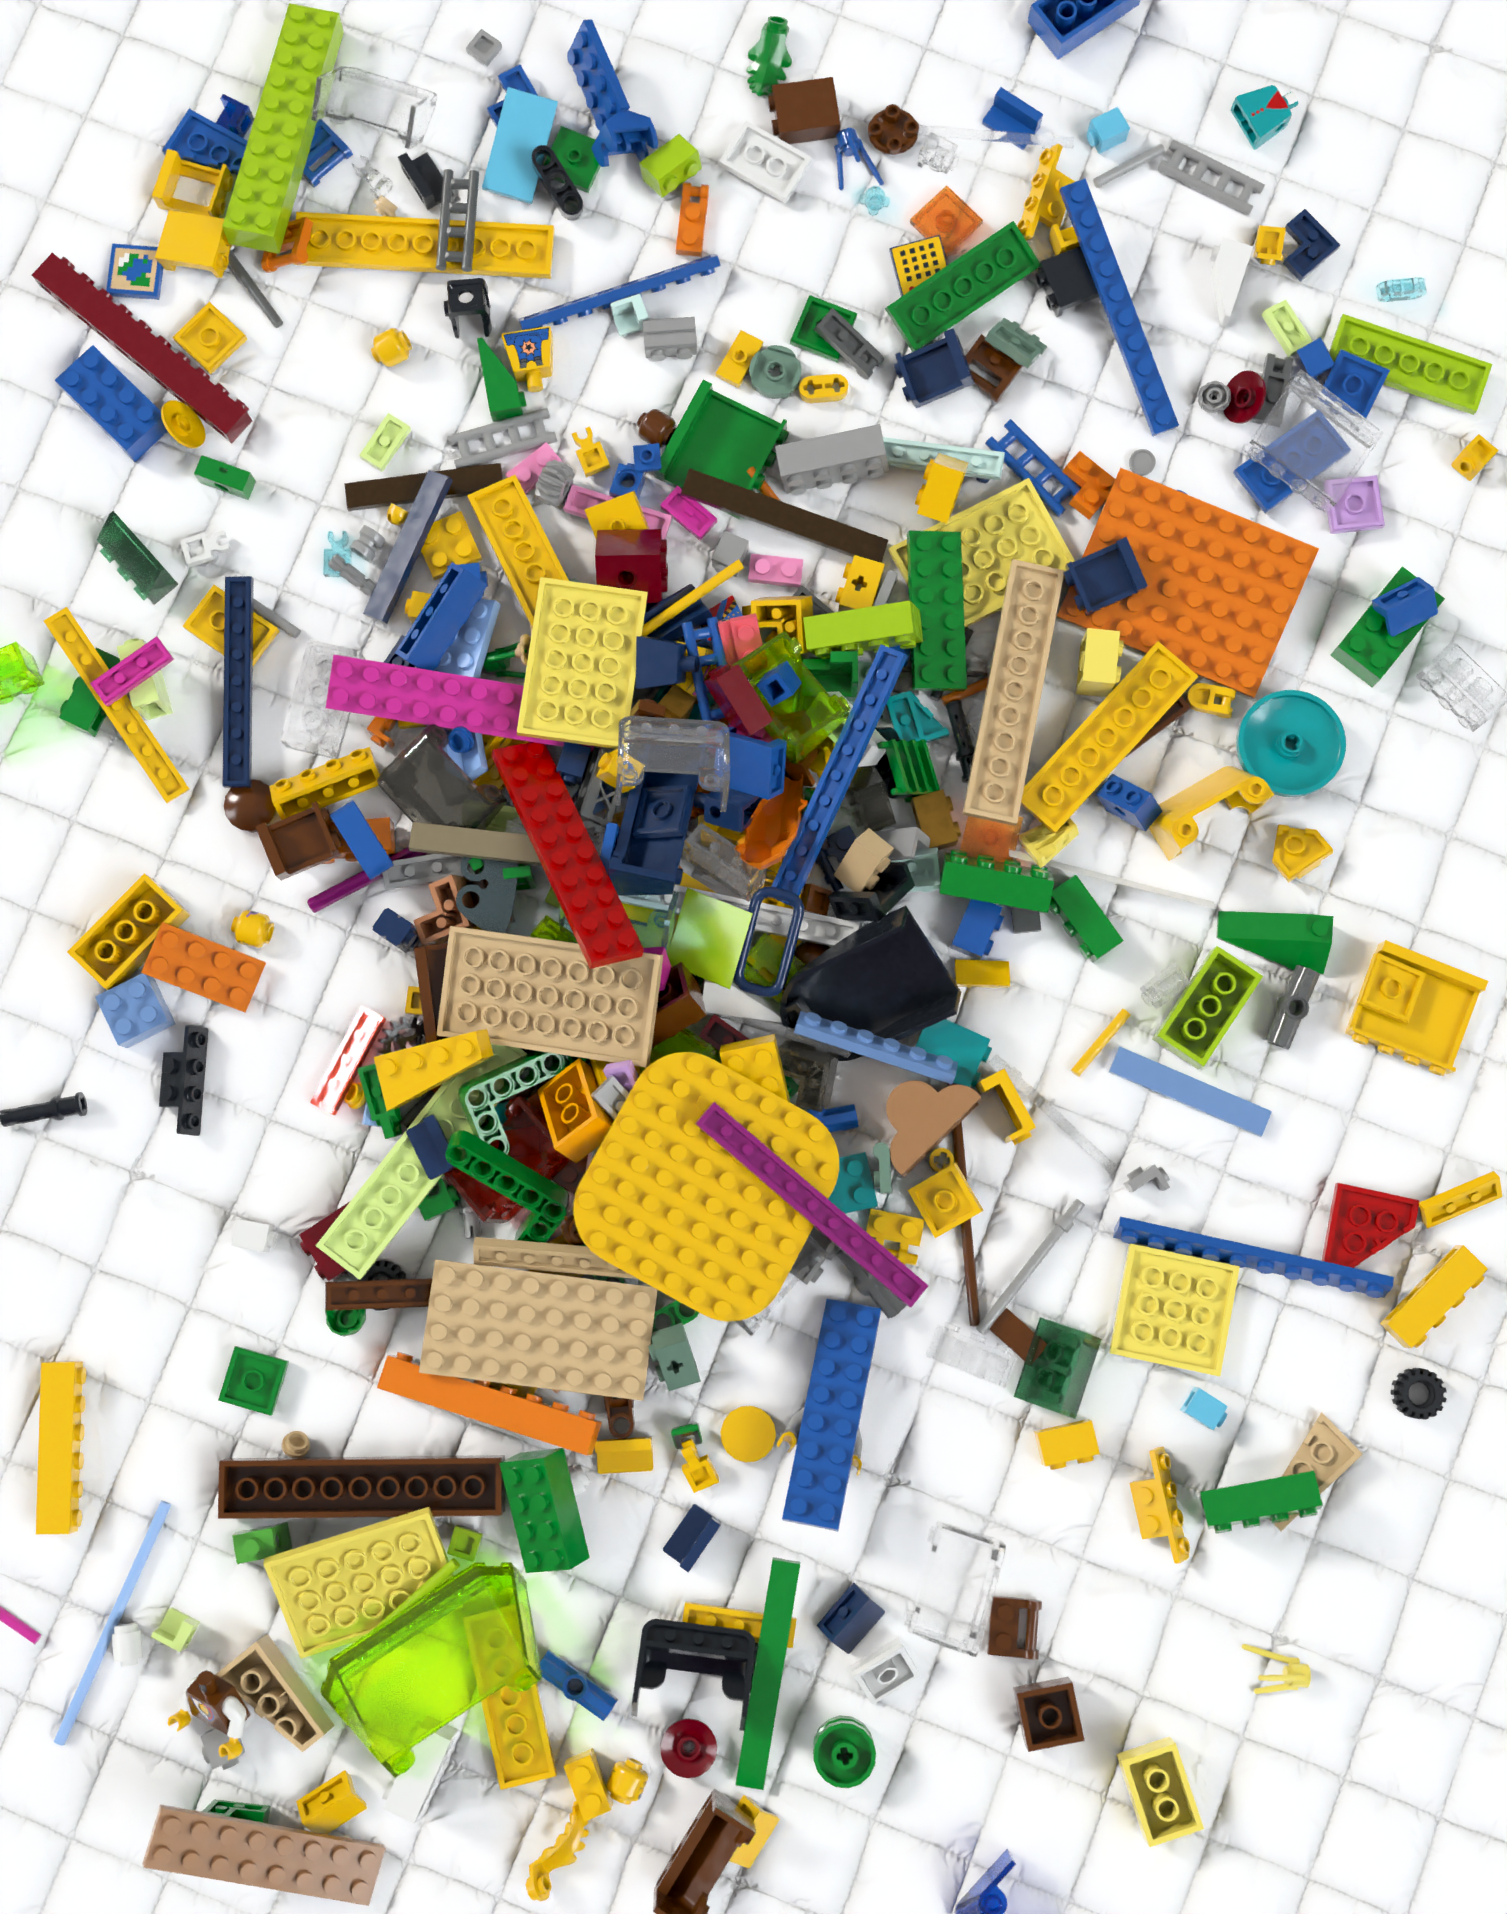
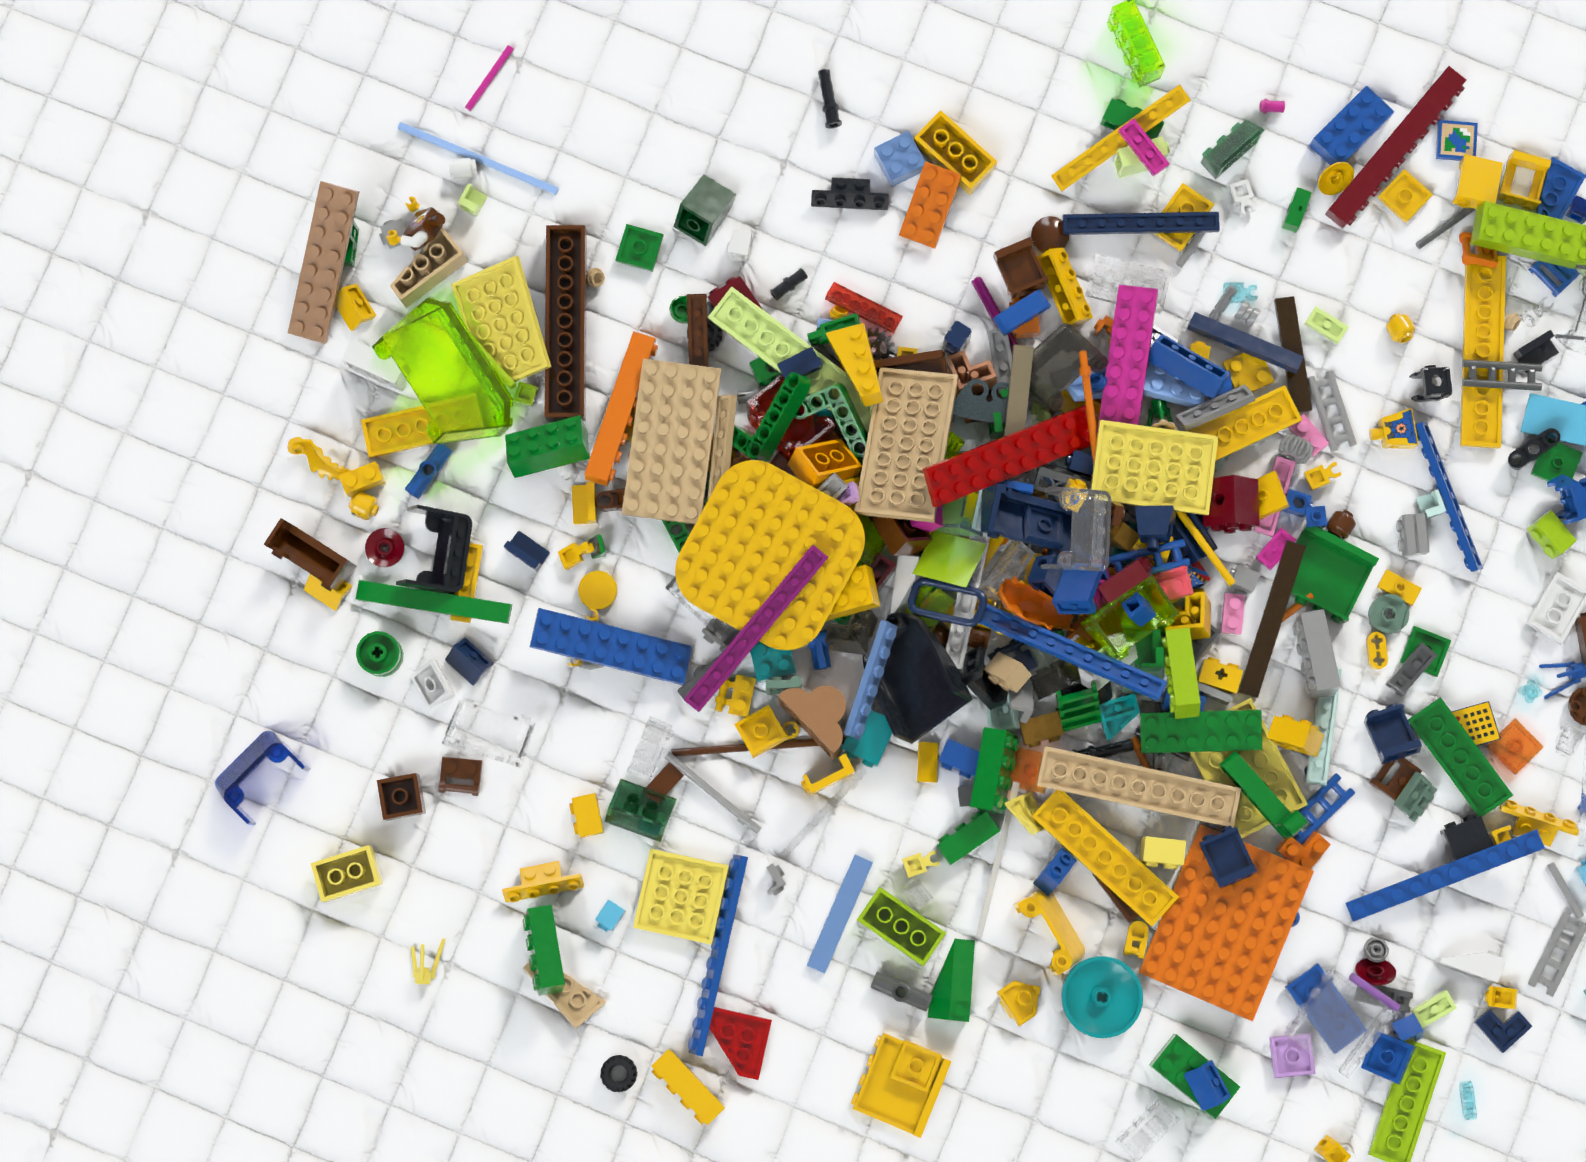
camera: 90 degrees right, 0 degrees up
(60, 1447) = (596, 118): yellow brick -> none
(78, 510) = (1271, 106): none -> dark pink pin
(200, 1287) = (704, 210): none -> slope
(252, 928) = (959, 238): yellow head -> none
(261, 1542) = (529, 254): bright green torso -> none
(312, 1166) = (788, 284): none -> black pin
(396, 515) = (1270, 334): yellow hinge -> none
(448, 751) = (1085, 371): none -> orange bar
(499, 583) = (1215, 407): none -> light grey plate
(501, 388) = (1366, 410): green slope -> none
(674, 1356) = (651, 537): sand green brick -> none
(692, 220) = (1510, 552): orange plate -> none
(1057, 503) = (1285, 822): none -> green beam
(1100, 1042) = (876, 849): yellow bar -> none
(1120, 987) = (917, 864): none -> light yellow plate
(1142, 462) = (1323, 893): light grey piece -> none
(1272, 397) = (1374, 992): none -> medium lavender bar
(1460, 1199) = (758, 1111): yellow plate -> none

